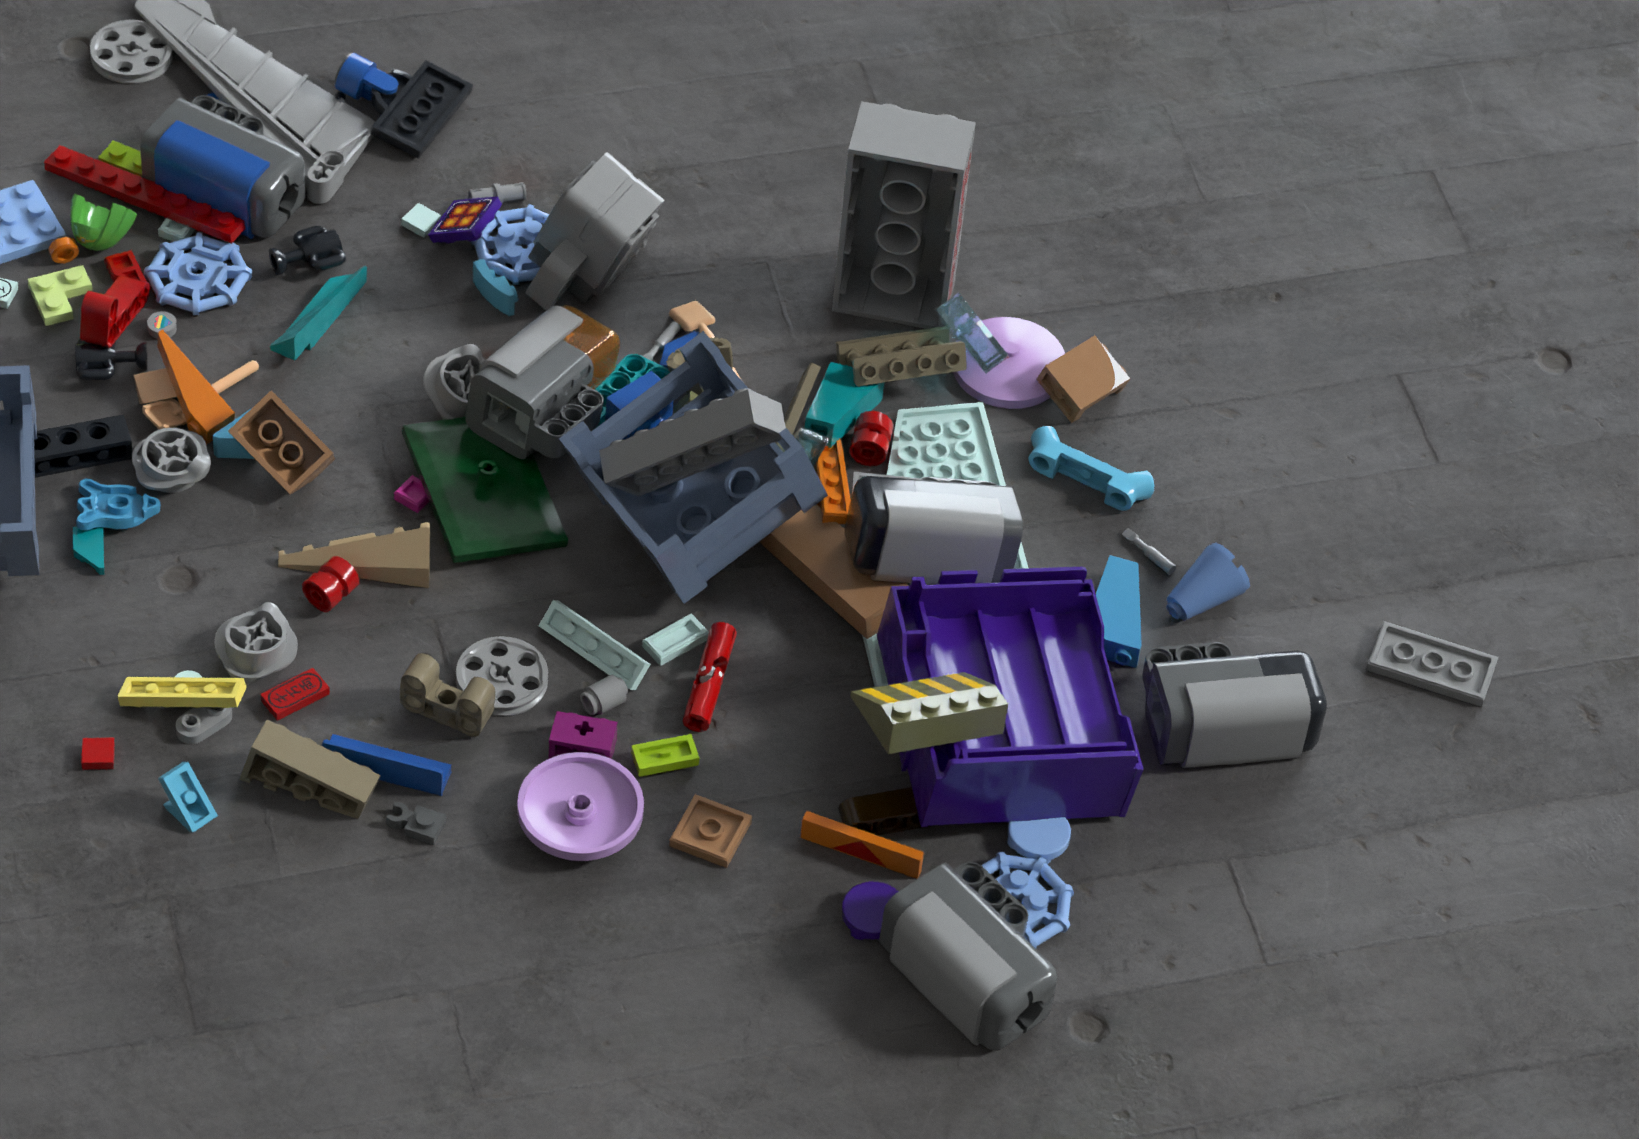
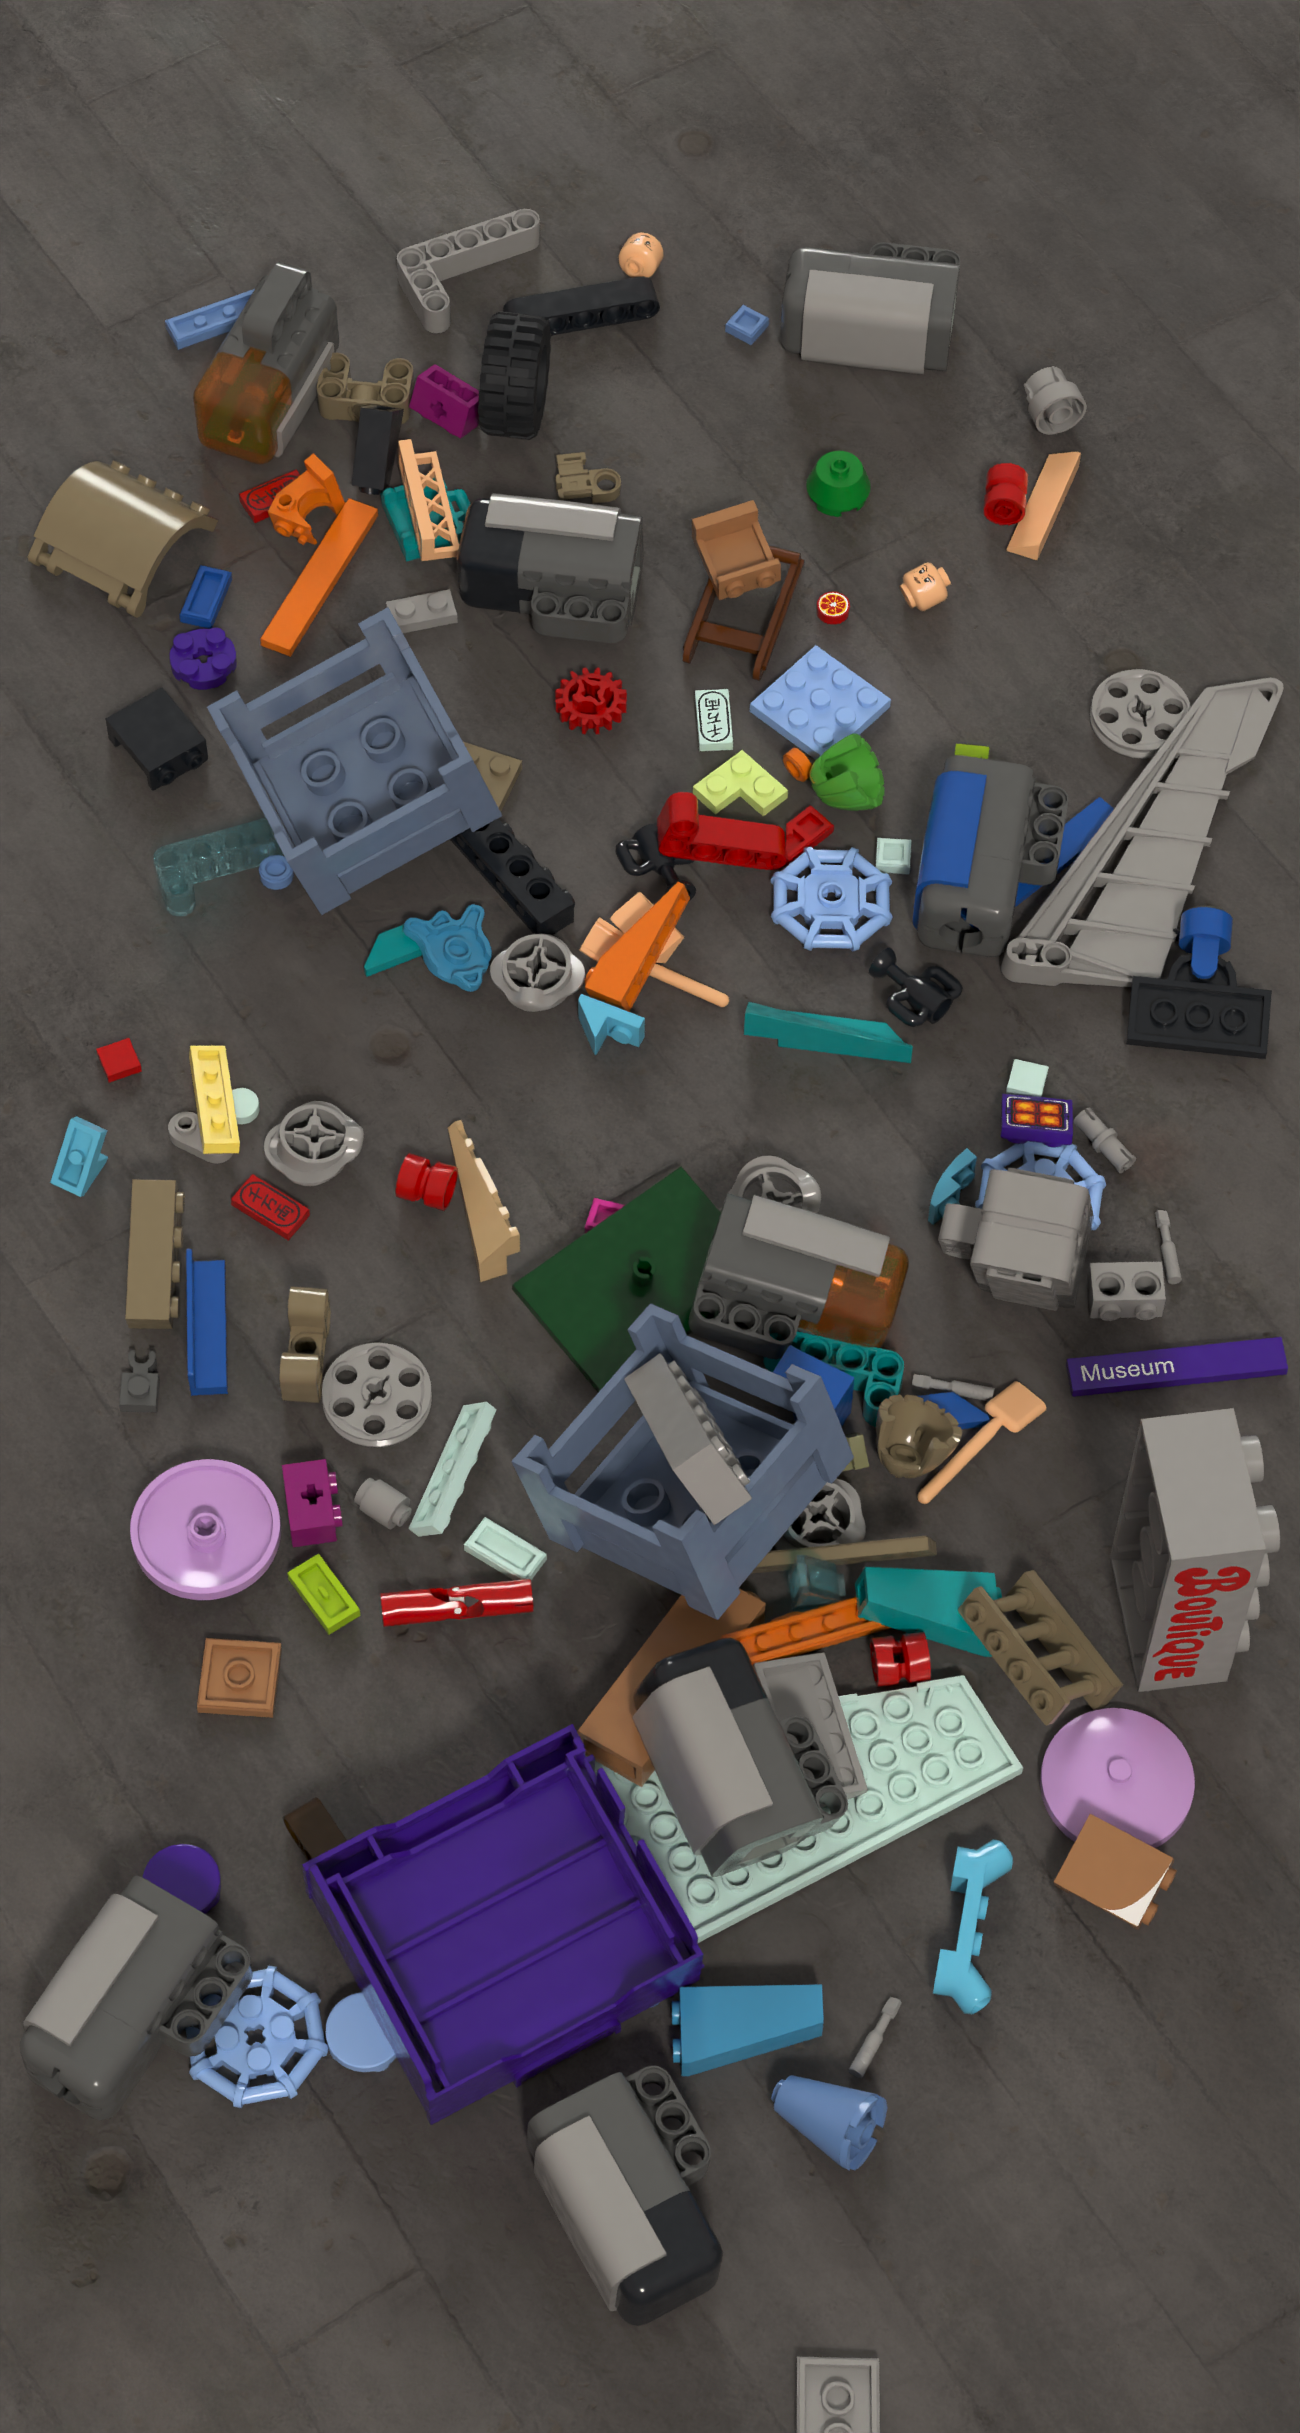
camera: 75 degrees right, 10 degrees up
(143, 193) = (926, 764): red plate -> none
(160, 321) = (739, 895): light grey tile -> none
(282, 443) = (595, 1061): medium nougat slope -> none
(700, 223) = (1176, 1366): none -> dark purple tile
(862, 844) = (270, 1841): orange tile -> none
(932, 711) = (396, 1821): olive slope -> none
(968, 328) = (1113, 1713): clear light blue slope -> none

